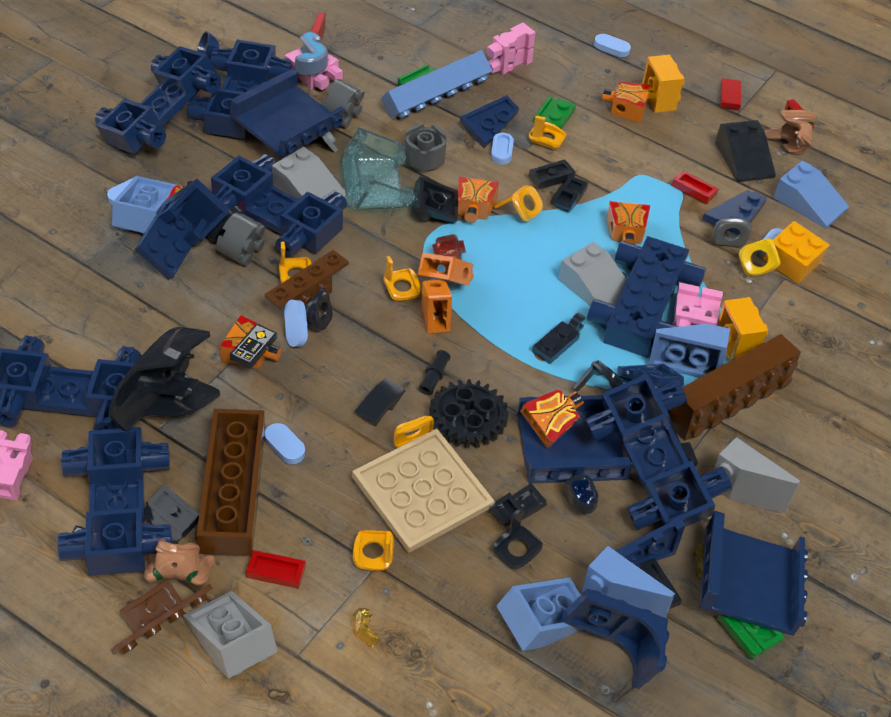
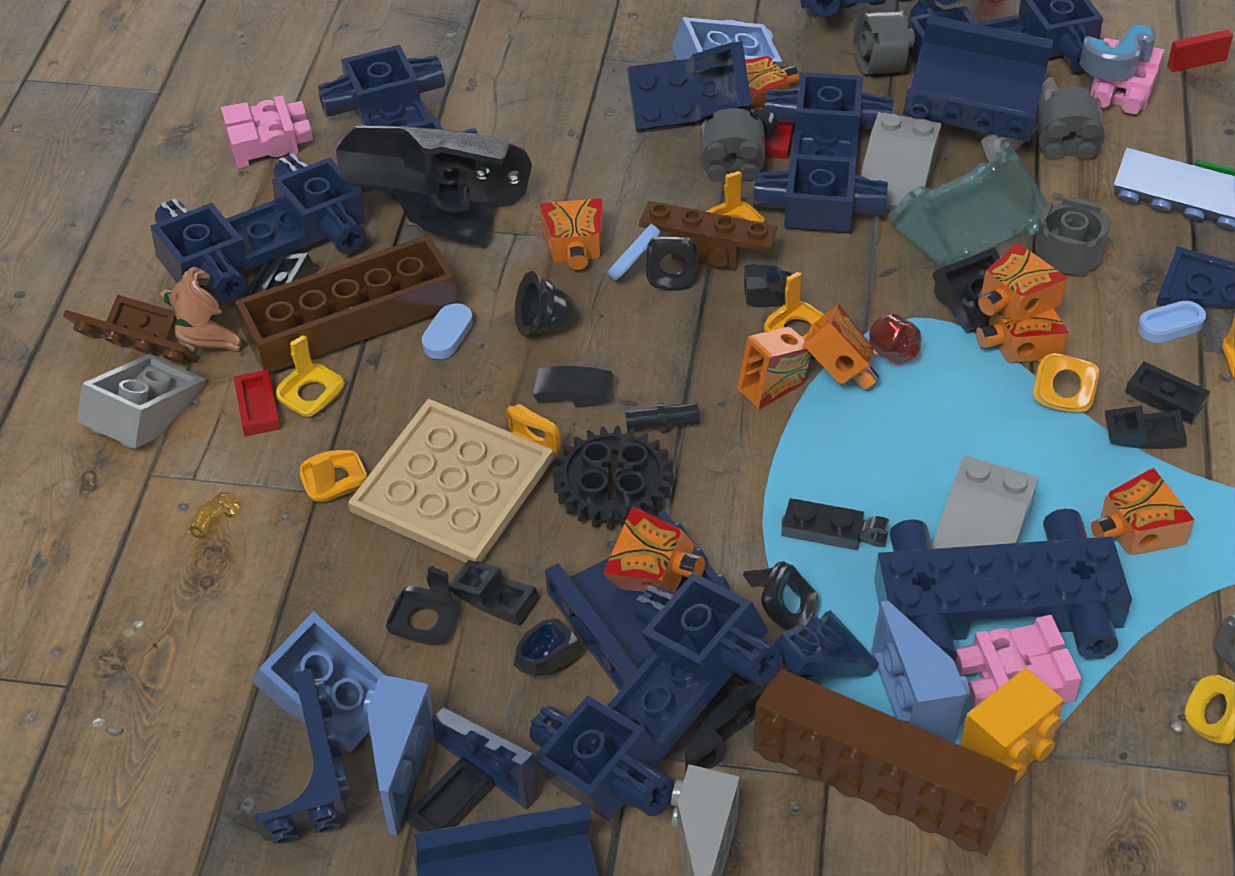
camera: 70 degrees right, 0 degrees up
(206, 136) = (882, 42): none -> dark grey brick
(253, 346) = (554, 227): tile -> none
(289, 520) = (306, 373): none -> yellow piece
(306, 388) = (542, 307): none -> black piece
(362, 282) = (765, 285): none -> black rock
(460, 179) = (1021, 285): none -> orange torso

